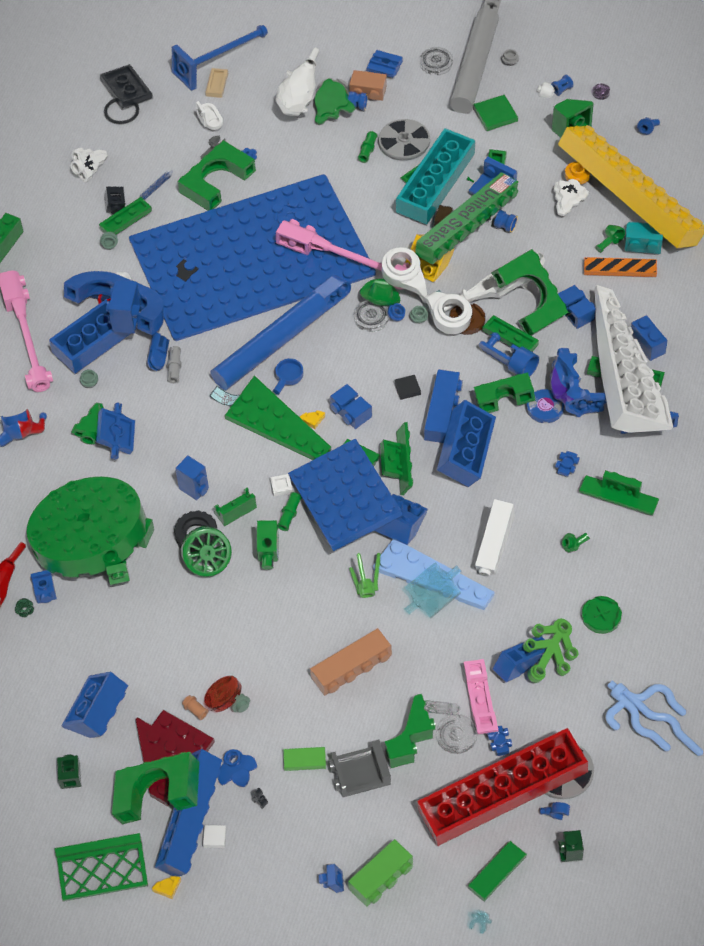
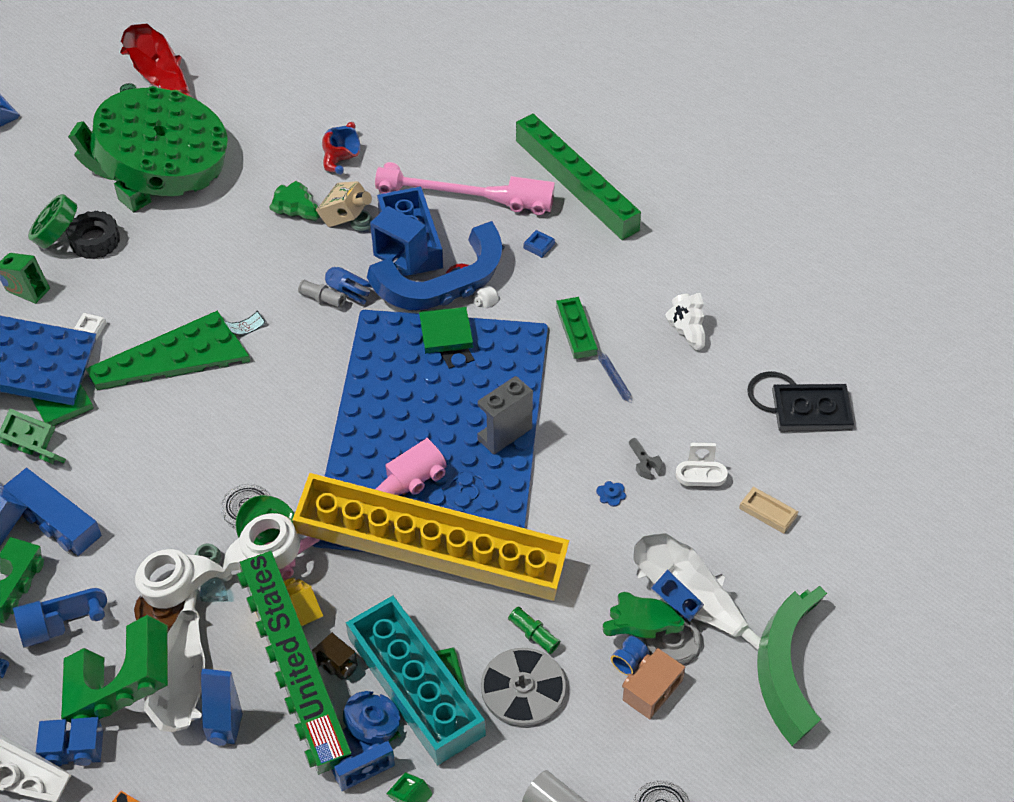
camera: 115 degrees right, 5 degrees down
(54, 271) = (539, 243): none -> blue tile
(82, 385) = (343, 203): none -> tan torso
(109, 240) = (548, 298): sand green plate -> none
(114, 202) = (608, 323): black brick -> none
(116, 431) = (265, 209): blue plate -> none
(170, 278) = (446, 330): none -> green tile
(186, 68) = (804, 467): blue tile -> none
(192, 478) = (149, 243): blue brick -> none
(222, 157) = (588, 409): green arch -> none
(236, 508) = (94, 274): green hinge -> none
(237, 201) = (507, 413): none -> dark grey panel
(280, 332) = (285, 396): blue piece -> none
(288, 373) = (225, 388): blue piece -> none
(289, 511) = (46, 314): green pin -> none
(311, 88) = (677, 595): none -> blue leg
(313, 419) = (150, 388): yellow tile -> none
(318, 40) = (775, 671): none -> green arch
(345, 202) = (431, 536): none -> yellow brick
(352, 410) = (116, 419): blue piece -> none
(385, 63) = (688, 716): blue piece -> none
(400, 312) = (222, 532): blue plate -> none
(407, 387) = (114, 496): black piece -> none
(468, 186) = (371, 717): none -> blue tile
(505, 220) = (279, 733): blue wheel -> none
(510, 334) = (94, 637): green plate -> none
(513, 240) = (220, 707): none -> blue slope

